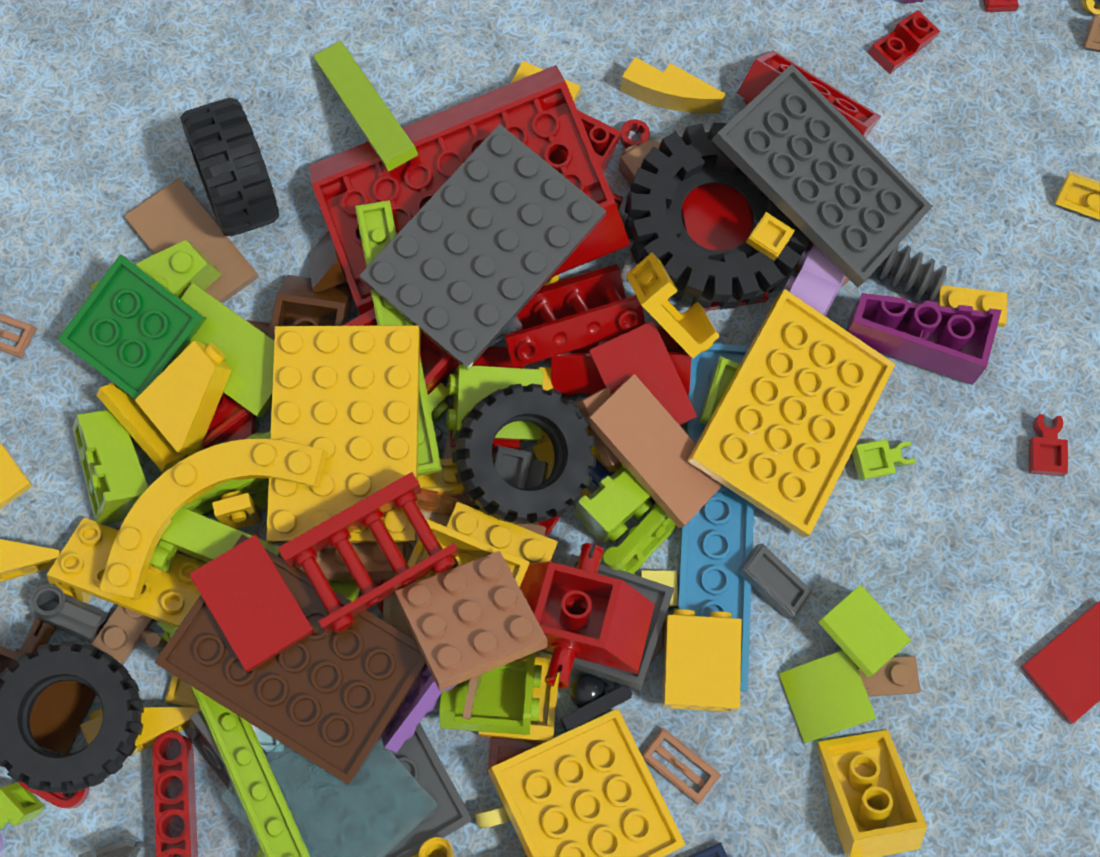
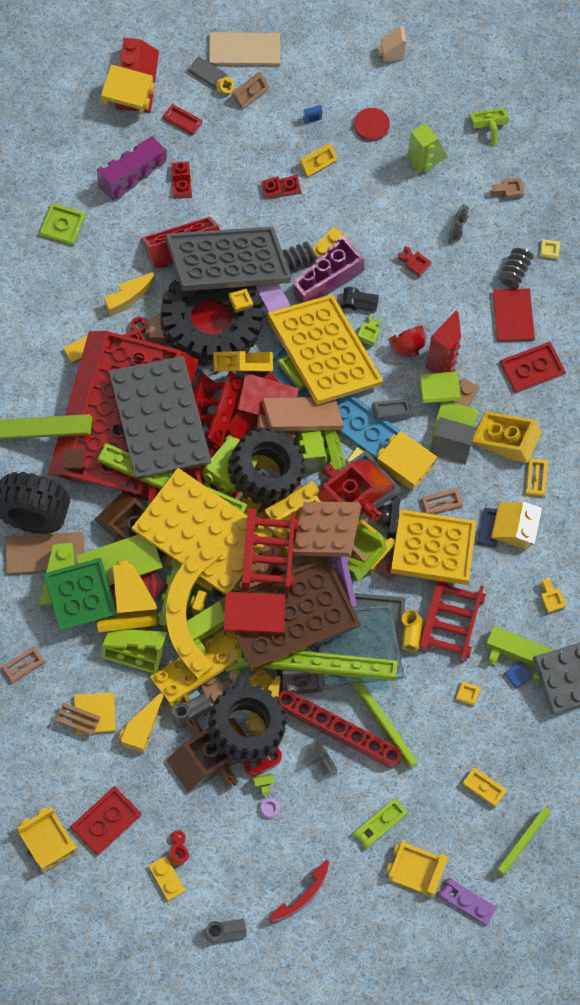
camera: 55 degrees left, 5 degrees down
(325, 265) = (104, 496): slope -> none
(338, 176) = (73, 458): none -> reddish brown tile
(491, 817) = (409, 588): light yellow tile -> none
(796, 711) = (453, 440): none -> dark grey slope
(907, 530) = (409, 342): none -> red cylinder
(914, 403) = (354, 299): none -> black piece
(935, 590) = (445, 346): none -> red slope
(1002, 175) = (278, 187): none -> red slope
(1021, 754) = (532, 367): none -> red tile

